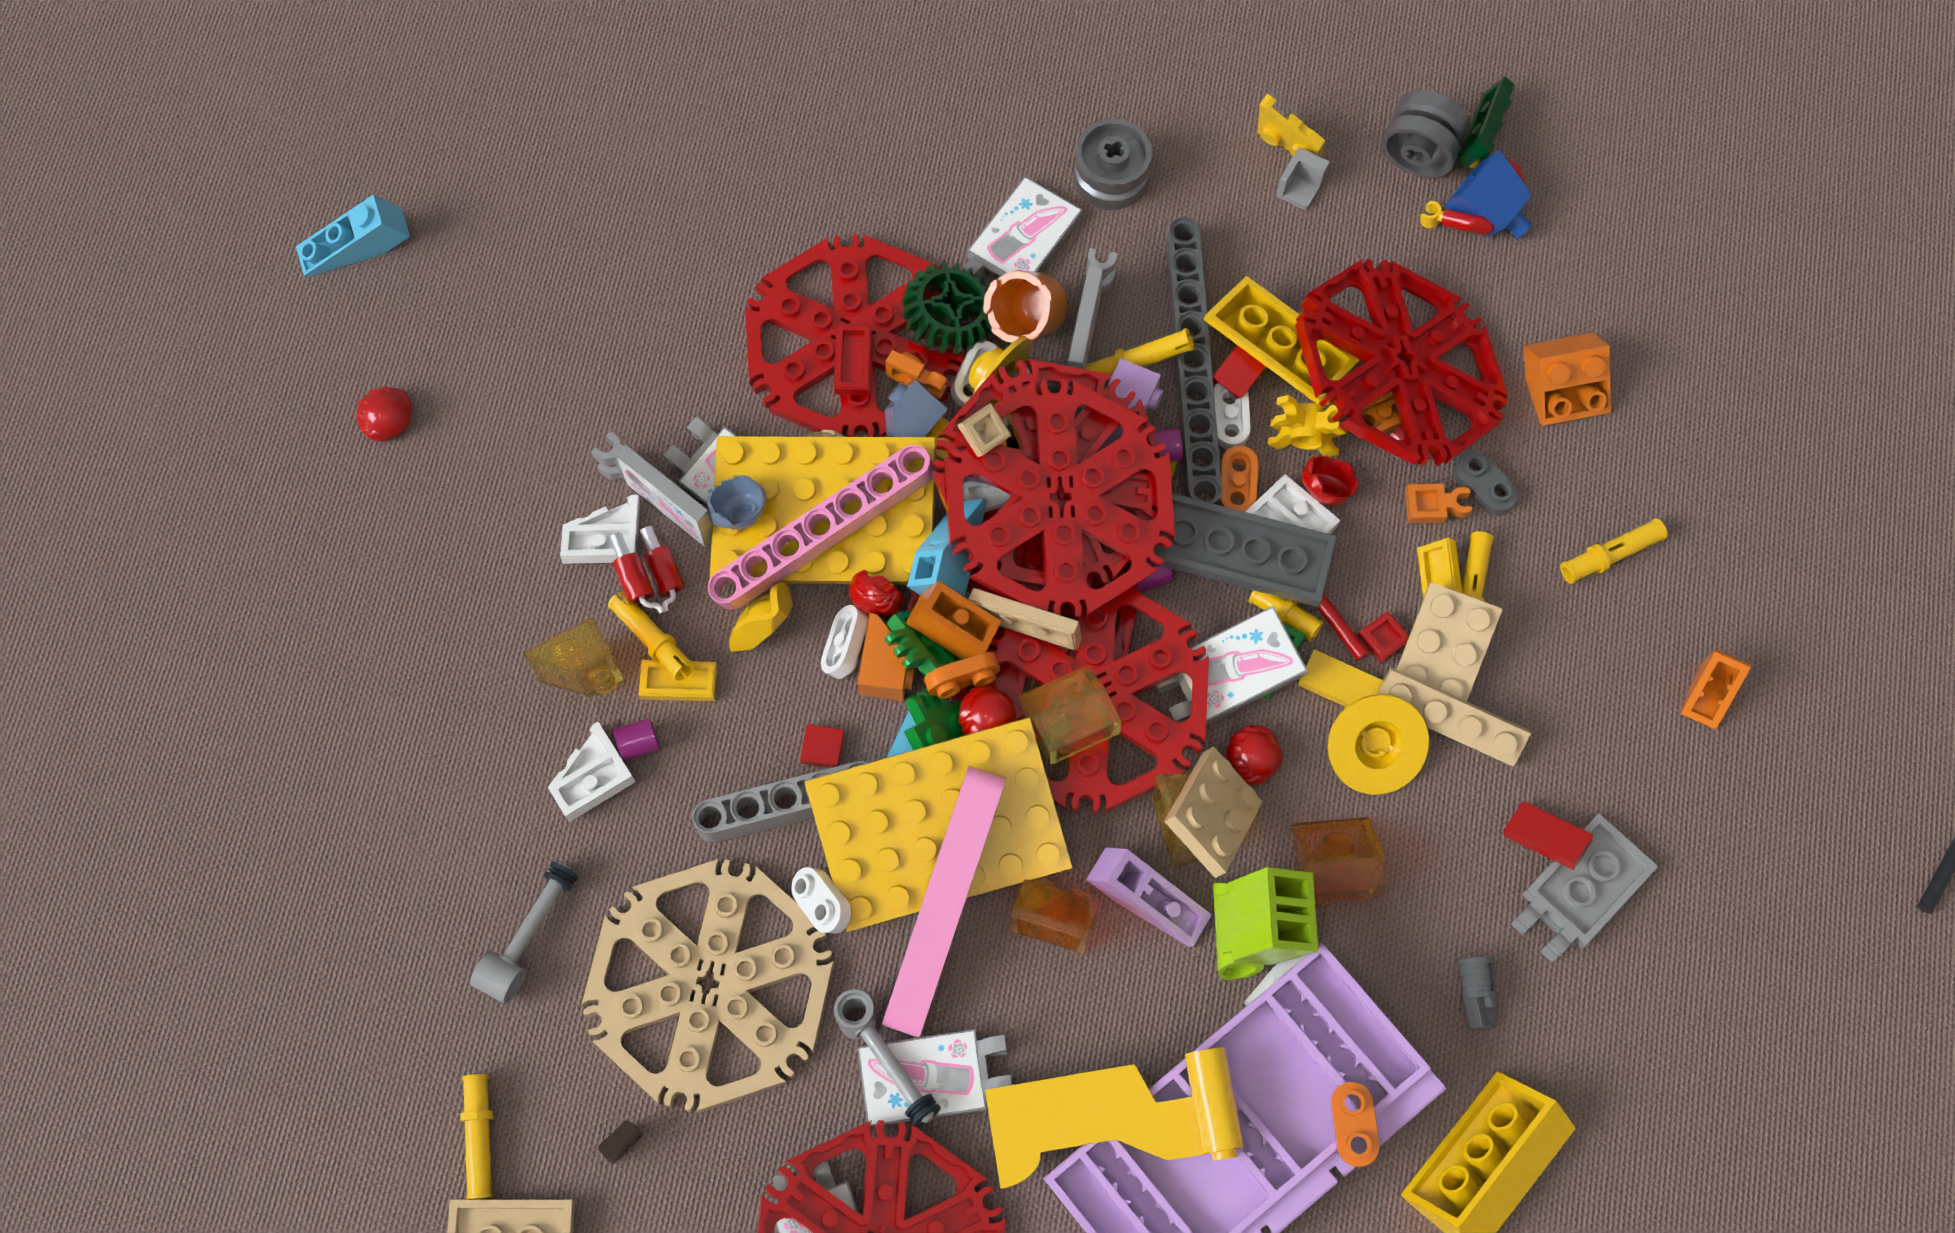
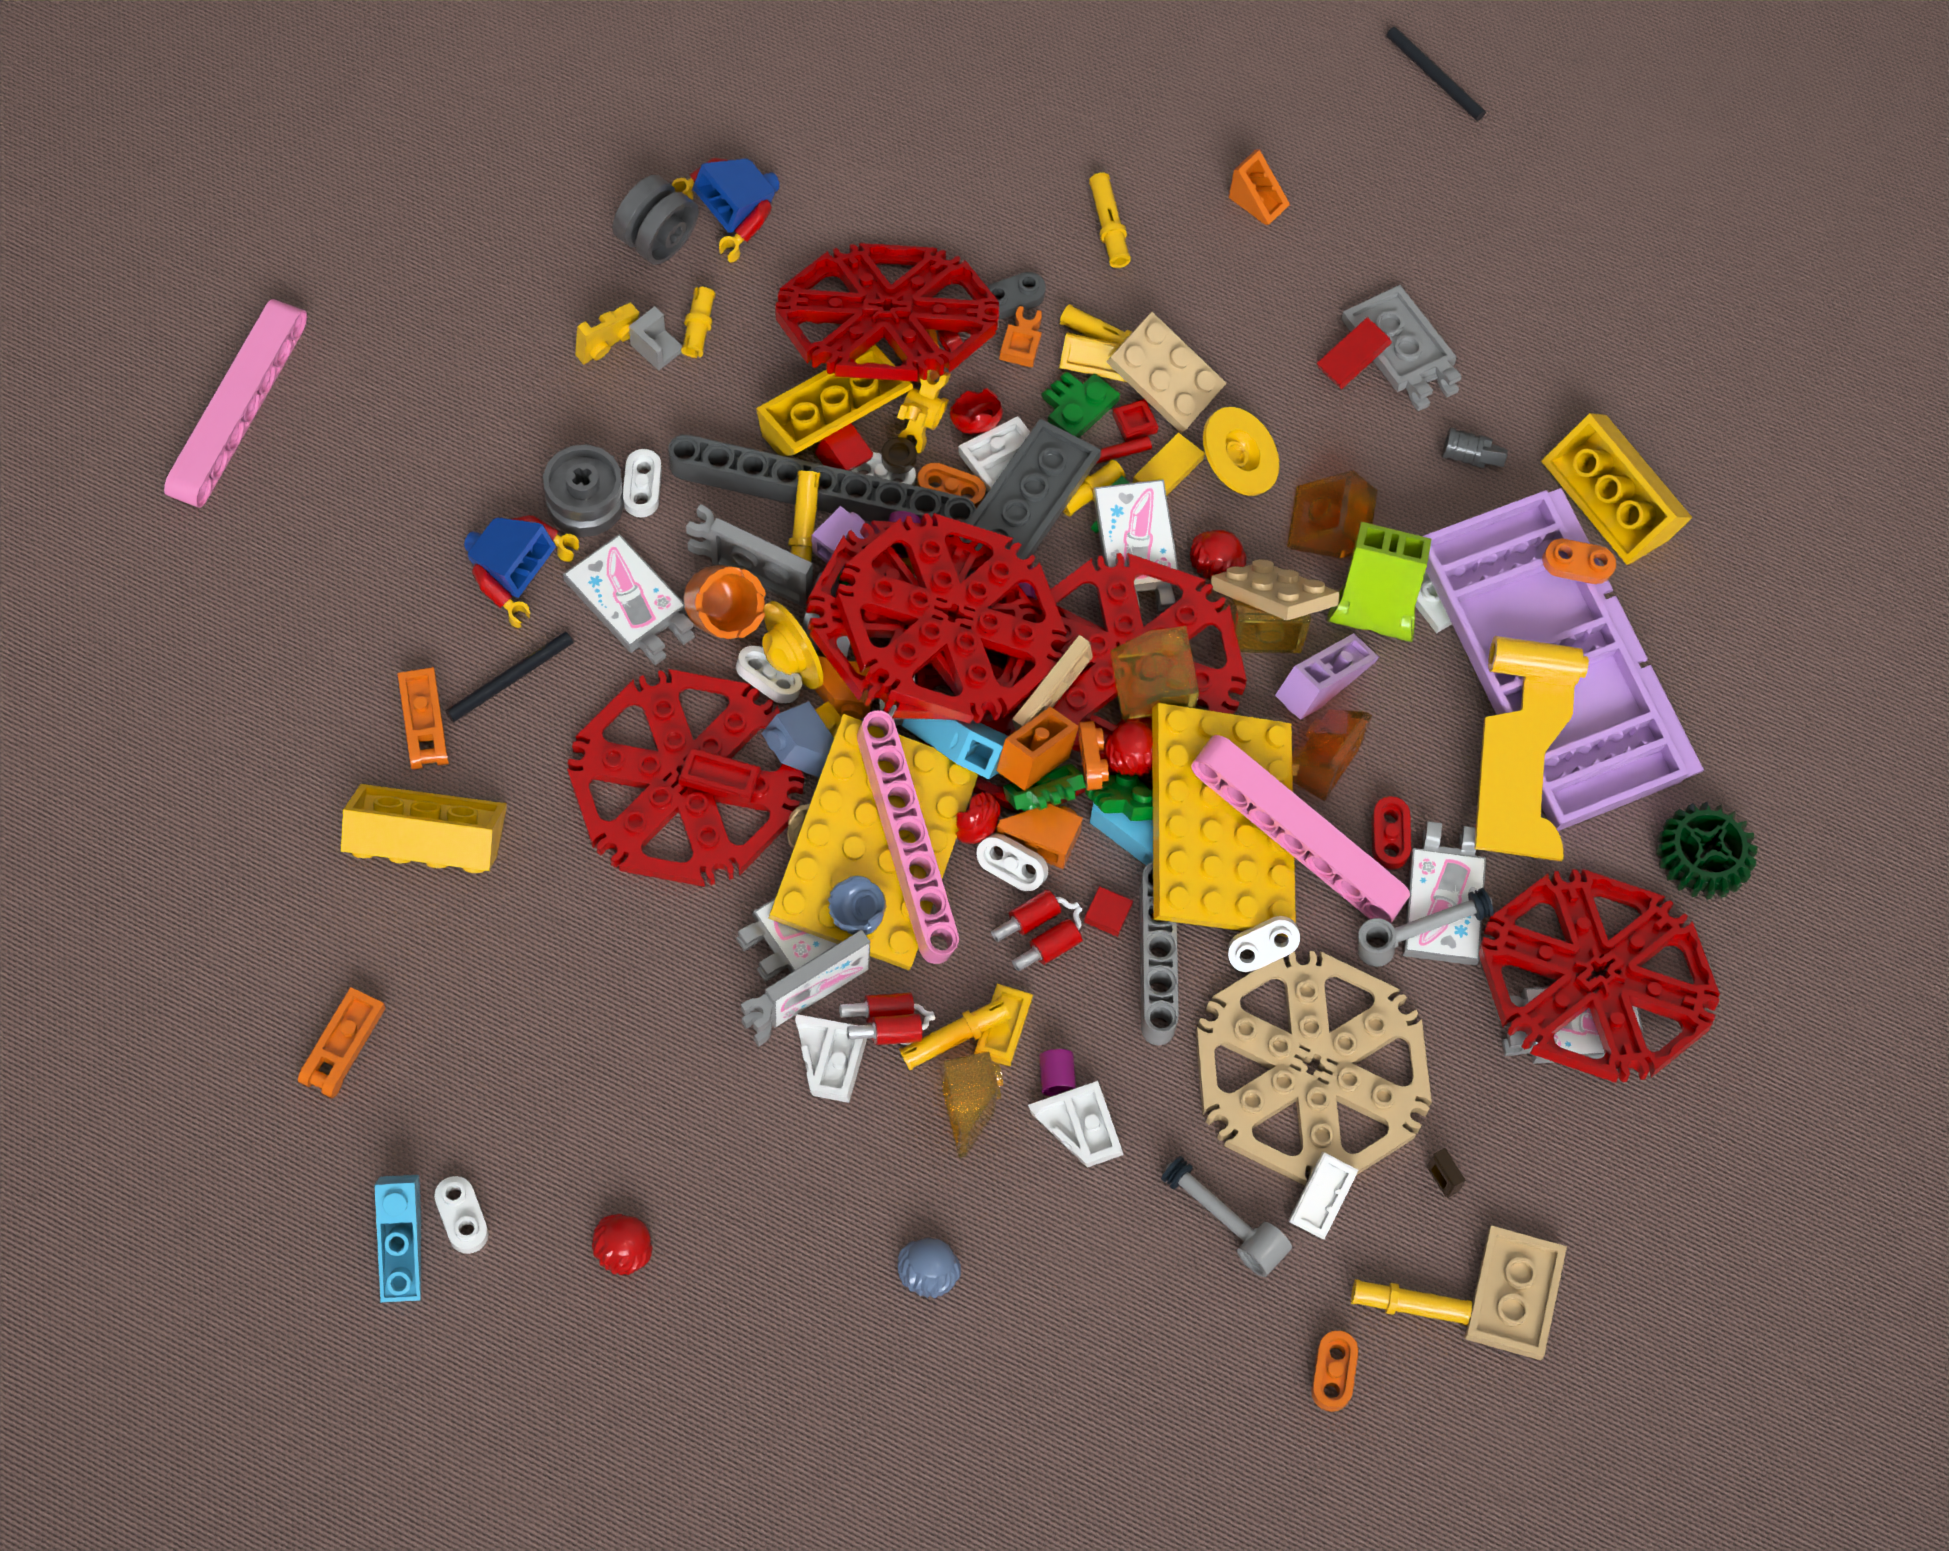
camera: 80 degrees left, 5 degrees down
(387, 283) = (460, 1213): none -> white plate
(391, 1075) = (1334, 1372): none -> orange plate
(417, 675) = (928, 1267): none -> sand blue hair
(518, 143) = (341, 1042): none -> orange plate
(567, 1022) = (1323, 1195): none -> white plate
(735, 141) = (422, 828): none -> yellow slope
(761, 618) = (976, 928): yellow hat -> none
(773, 701) = (1032, 915): none -> red piece
(842, 110) = (422, 717): none -> orange plate
(908, 368) = (749, 727): orange plate -> none
(909, 167) = (509, 676): none -> black bar
(941, 316) = (717, 680): dark green gear -> none
(984, 430) = (881, 646): tan tile -> none
(986, 1001) = (1391, 835): none -> red plate
(1023, 125) = (510, 557): none -> blue torso
(1141, 212) = (642, 485): none -> white plate
(1249, 420) = (898, 455): none -> dark brown tile
(1337, 210) = (698, 322): none -> yellow pin
(1381, 579) = (1078, 403): none -> green hinge
(1459, 718) = (1230, 385): tan plate -> none
(1486, 123) = (644, 160): dark green plate -> none
(1568, 378) = (934, 195): orange slope -> none

